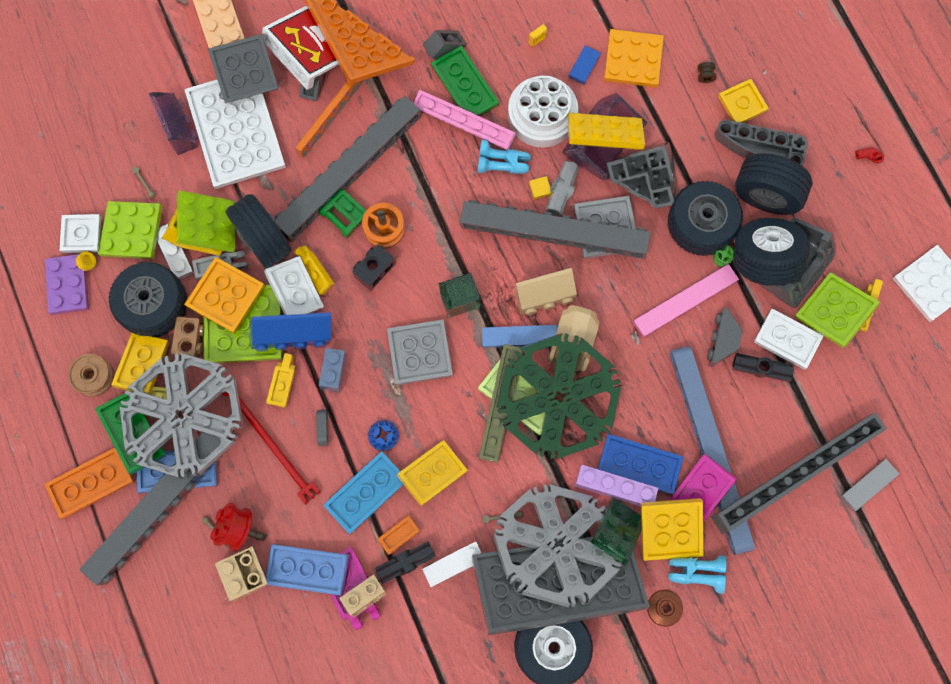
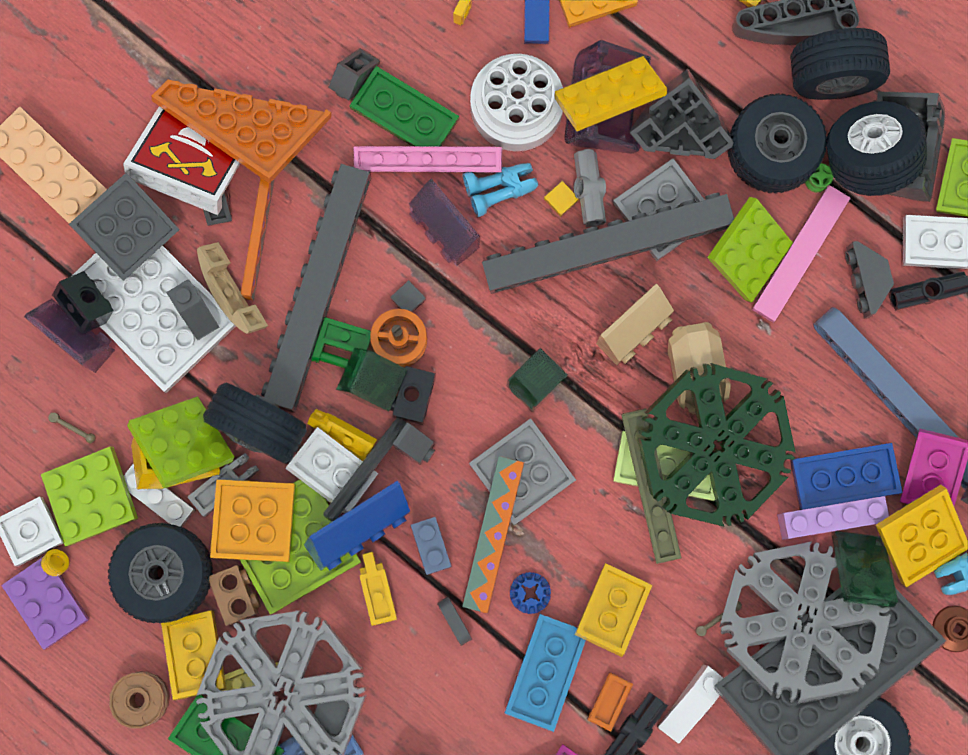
camera: 30 degrees left, 5 degrees up
(191, 104) = (83, 302): none -> black brick
(259, 141) = (192, 309): none -> dark grey slope
(287, 141) = (225, 292): none -> tan slope
(305, 488) = (470, 702): red hinge -> none
(317, 297) = (364, 470): none -> dark grey axle
(350, 241) = (371, 379): none -> clear green piece
(356, 297) = (414, 444): none -> dark grey slope
(378, 383) = (493, 534): none -> tile
(404, 203) = (408, 297): none -> dark grey tile
(451, 166) = (443, 224): none -> clear purple slope
(516, 335) = (628, 393): medium blue tile -> none
(649, 278) = (750, 249): none -> lime plate

